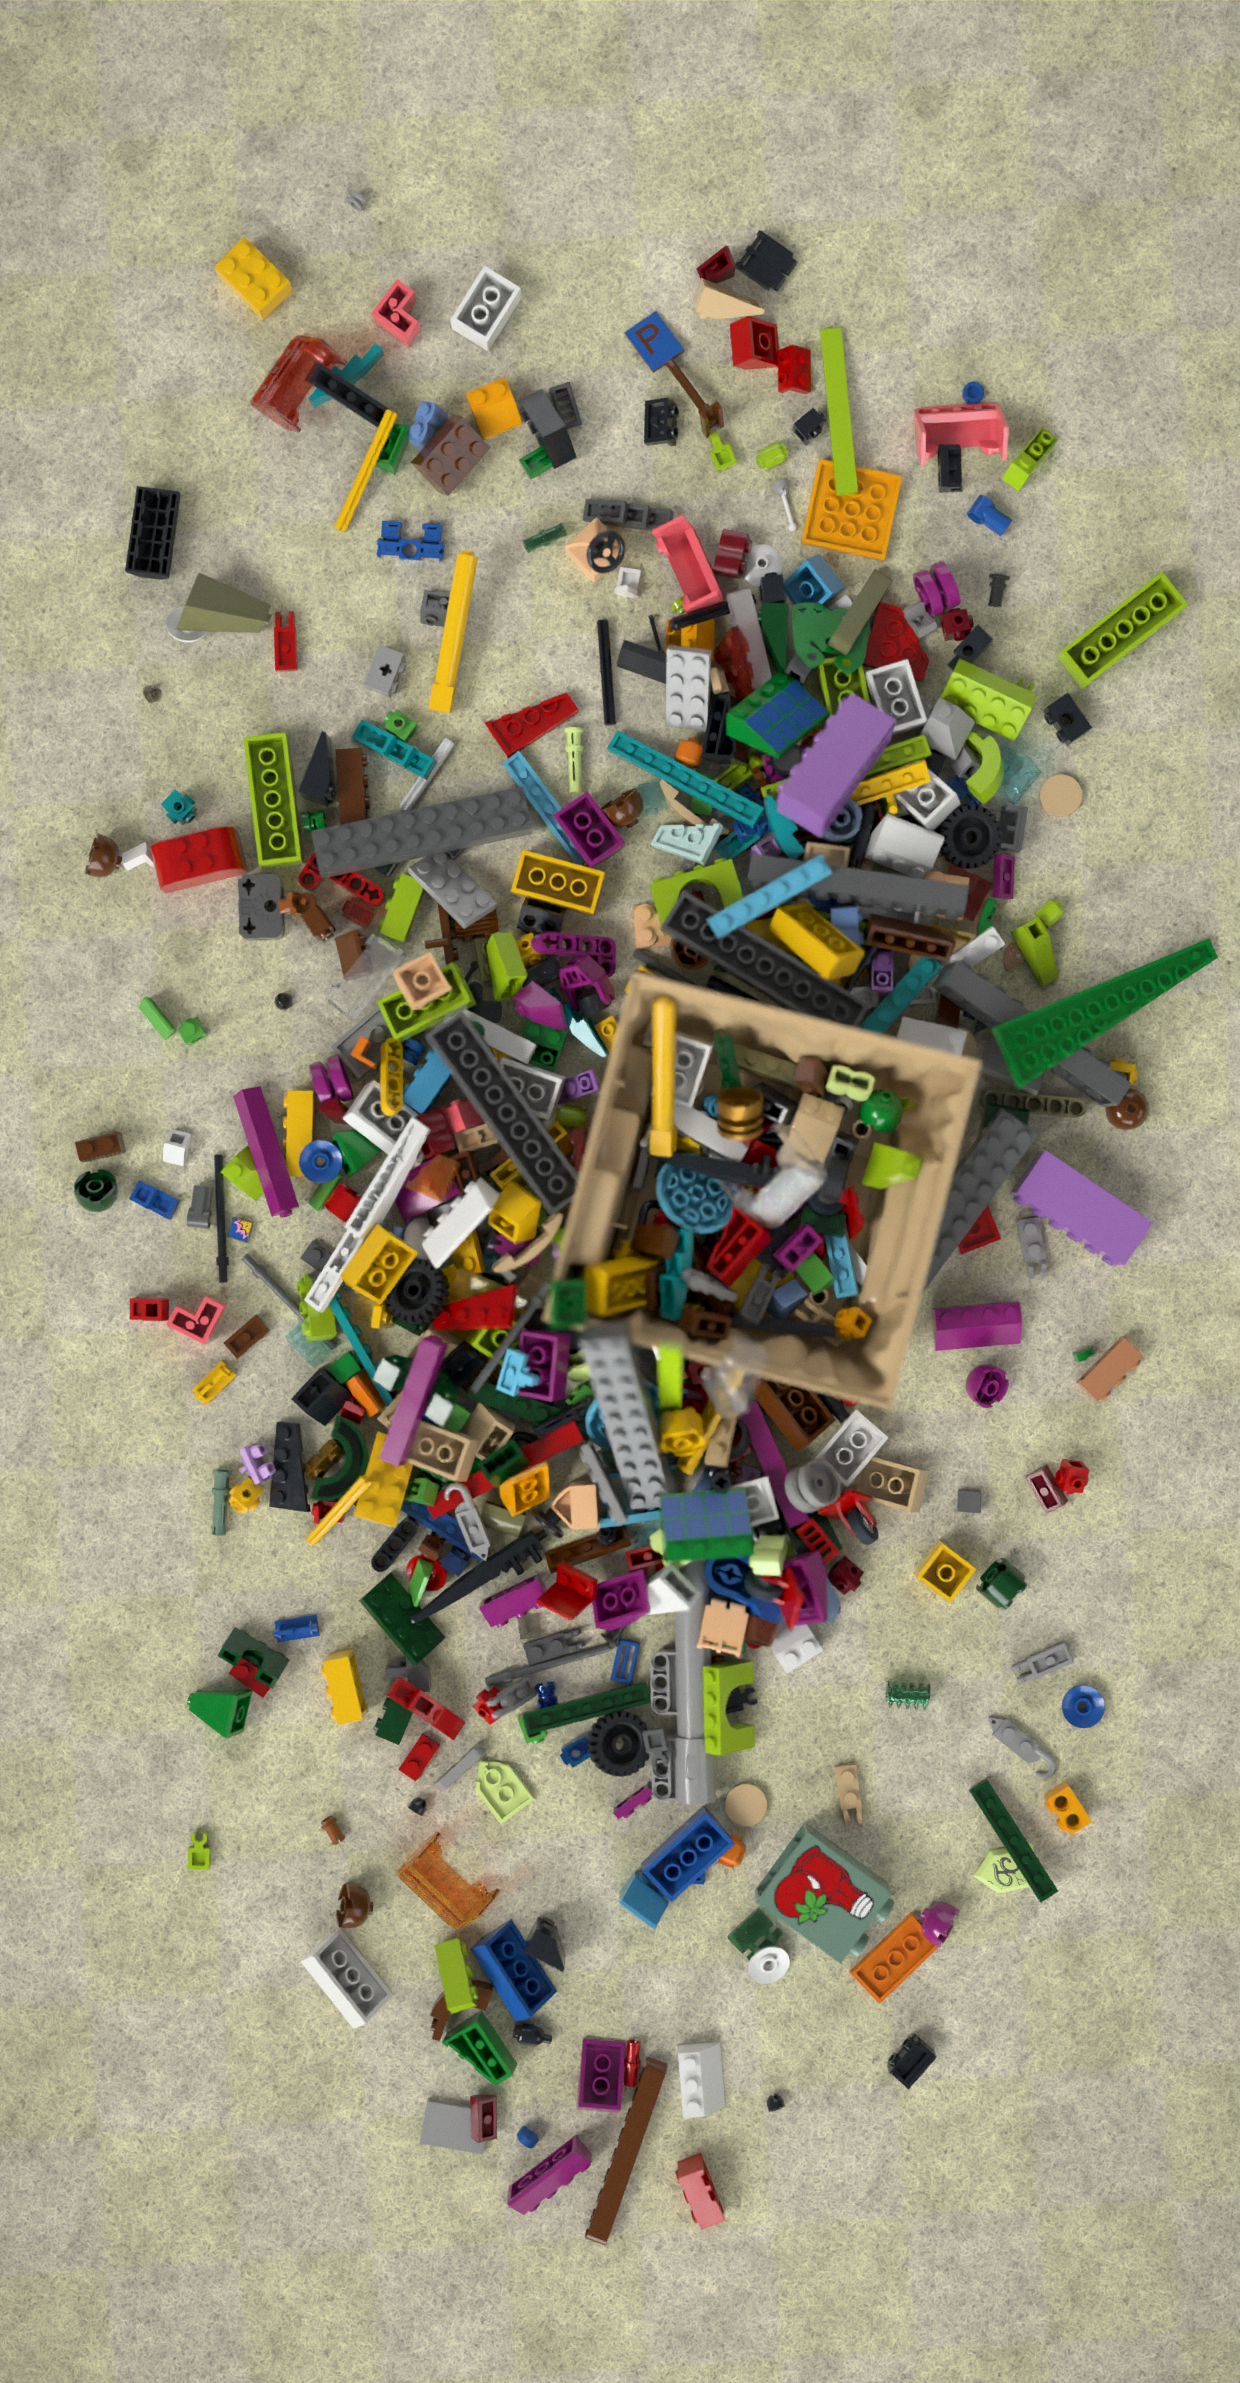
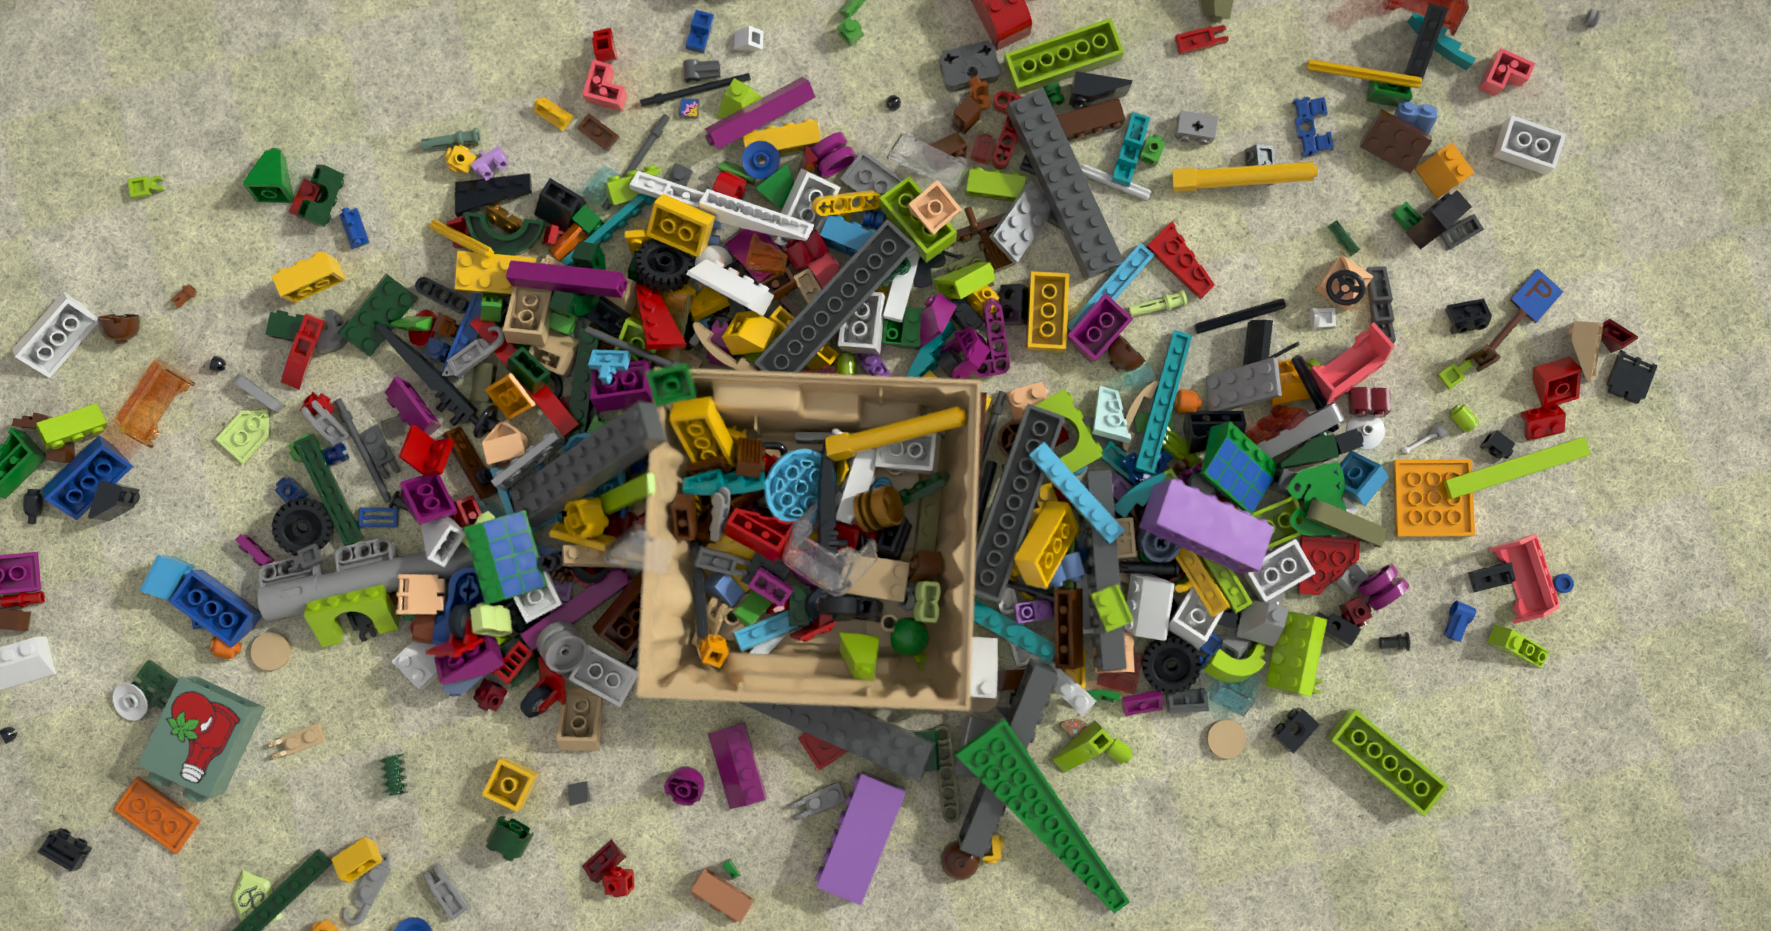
camera: 75 degrees right, 5 degrees down
(361, 1050) = (863, 173): orange panel -> none
(419, 1757) = (261, 356): red plate -> none
(540, 1430) = (584, 425): black pin -> none
(719, 682) = (1255, 412): tan slope -> none
(901, 886) = (1111, 608): none -> lime plate
(938, 1922) = (194, 846): magenta cylinder -> none
(989, 1750) = (357, 859): none -> yellow brick

